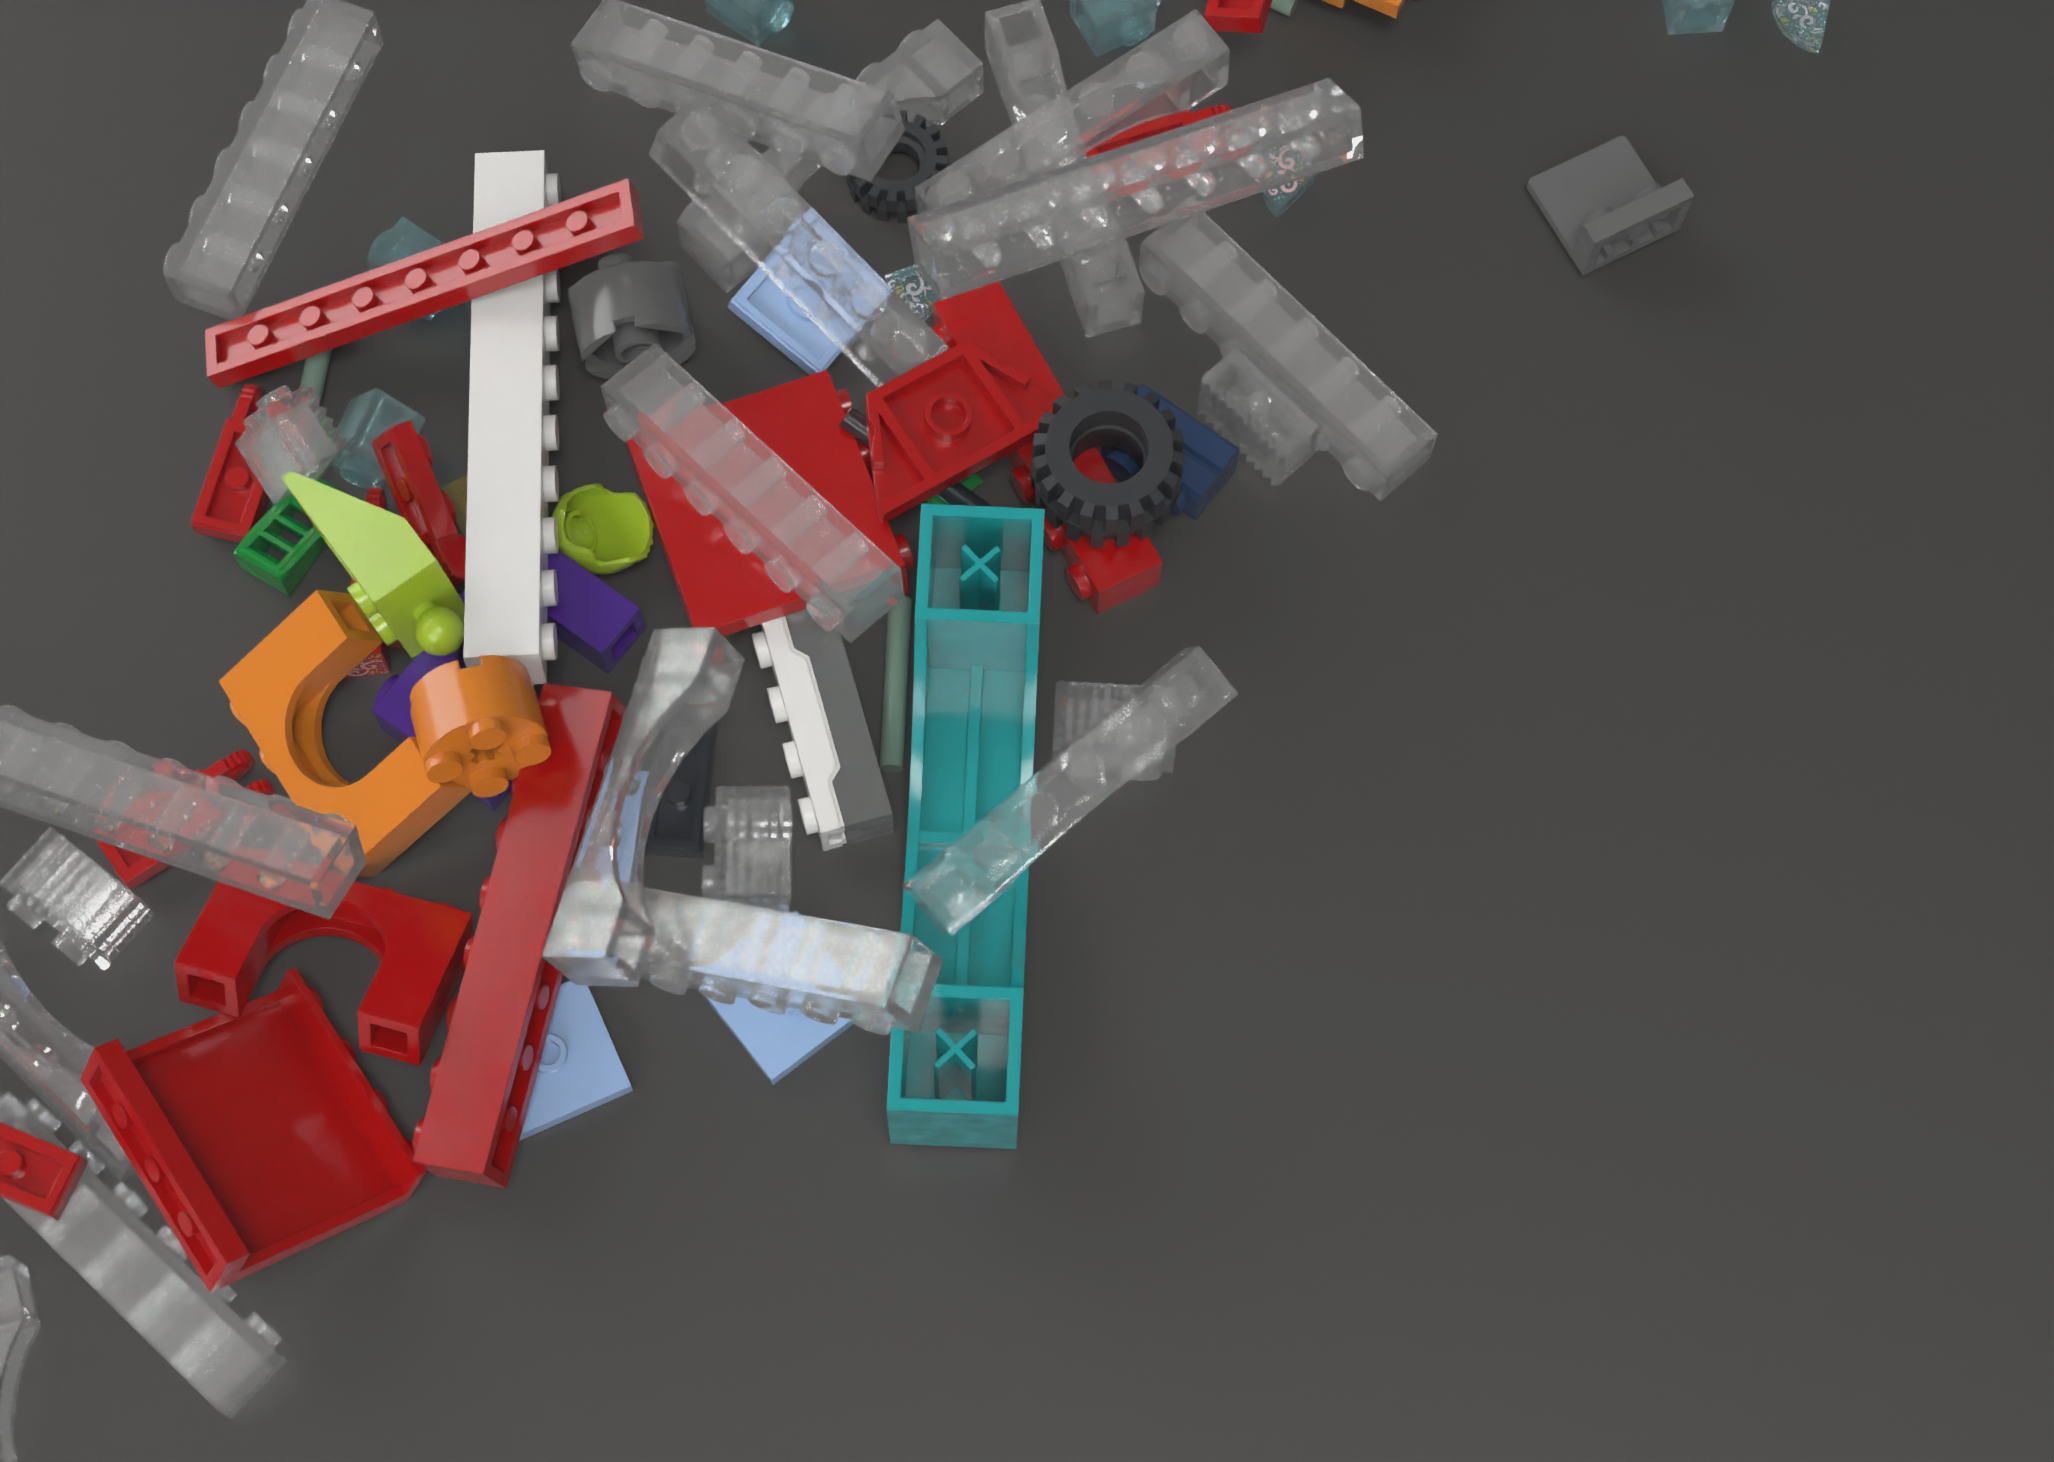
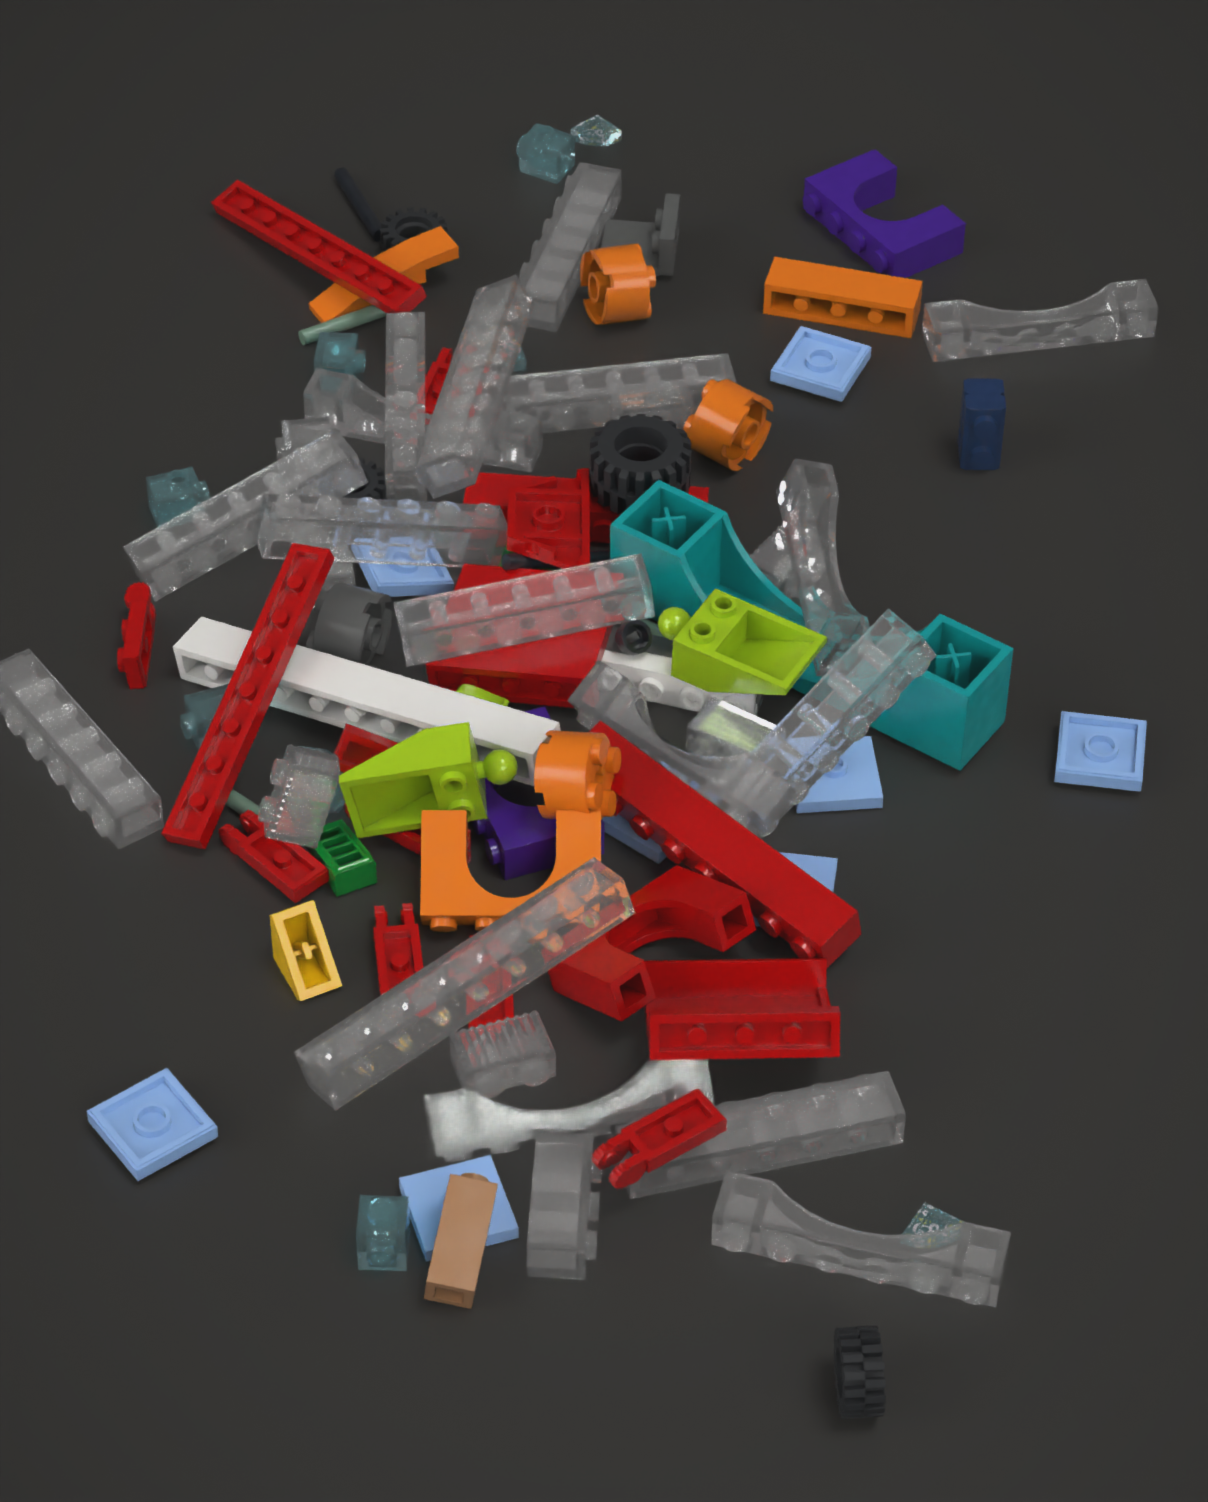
camera: 55 degrees left, 25 degrees down
(103, 595) = (303, 951): none -> yellow slope
(167, 691) = (396, 947): none -> red hinge
(498, 103) = (137, 635): none -> red hinge
(800, 648) = (638, 645): none -> black hinge
(848, 781) = (738, 647): none -> lime slope
(1031, 1299) = (1100, 751): none -> light blue plate
(1302, 514) = (729, 423): none -> orange brick
(1479, 226) = (617, 284): none -> orange brick
(1525, 819) = (981, 424): none -> dark blue brick
(1531, 121) = (574, 228): none -> clear brick
(1534, 550) = (820, 363): none -> light blue plate
(1684, 502) = (842, 297): none -> orange brick
(1837, 508) = (890, 247): none -> dark purple arch
(1915, 859) = (970, 330): none -> clear arch

